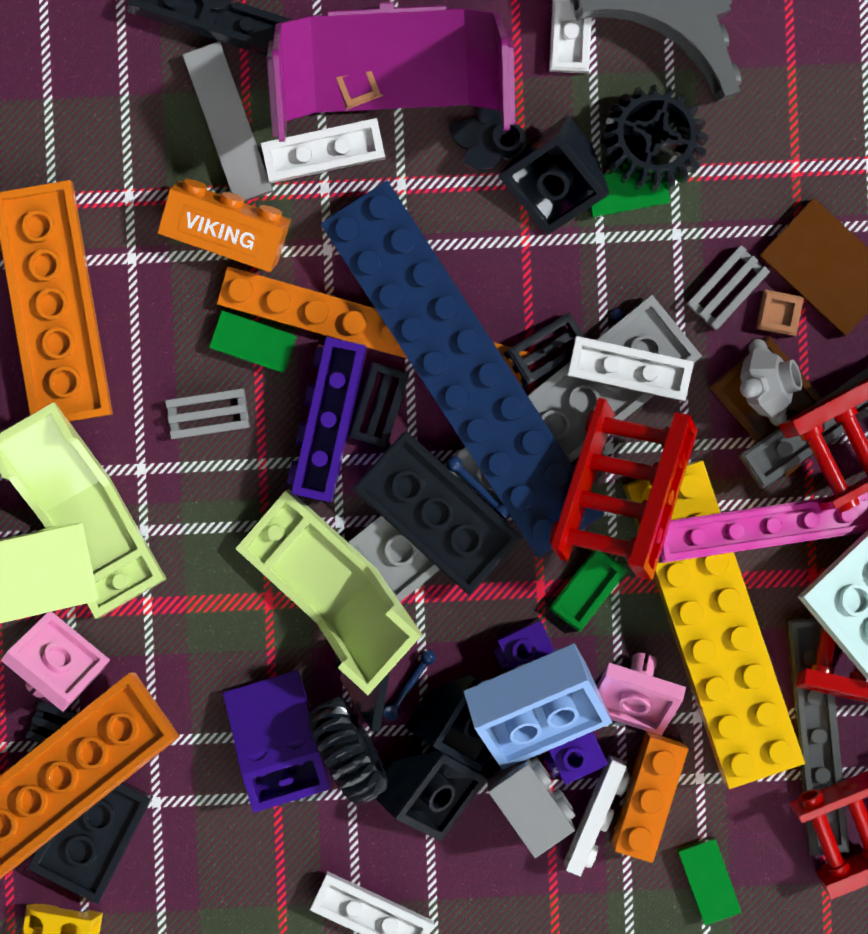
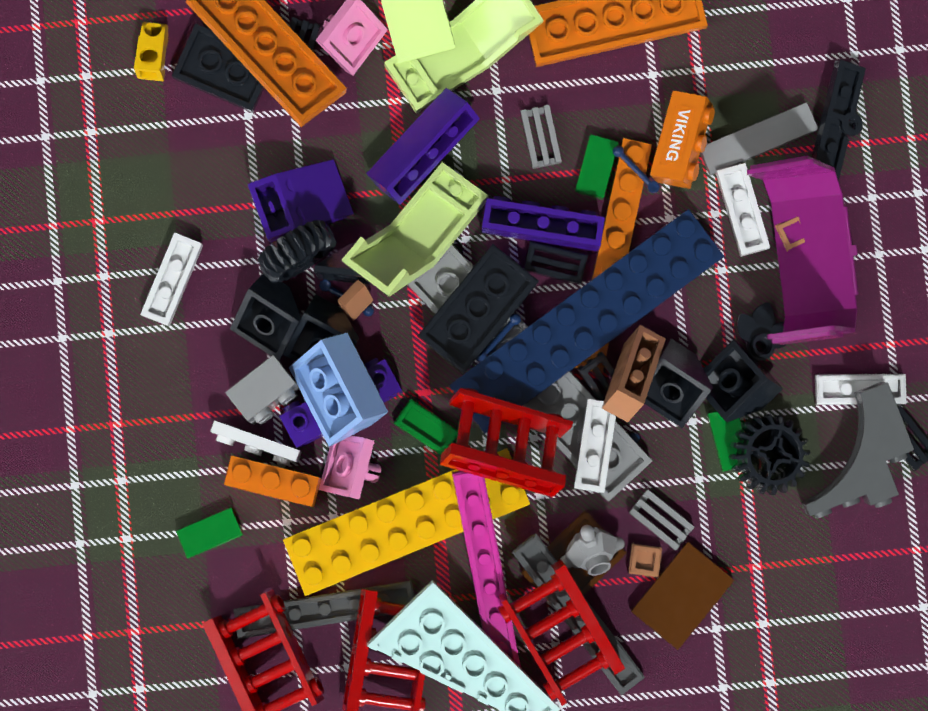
camera: 85 degrees right, 5 degrees down
(211, 575) = (423, 146): none -> dark purple brick
(286, 269) = (653, 186): none -> dark blue hinge
(416, 675) = (355, 300): none -> nougat tile
(539, 312) = (633, 373): none -> nougat brick
(551, 257) = (678, 384): none -> black slope

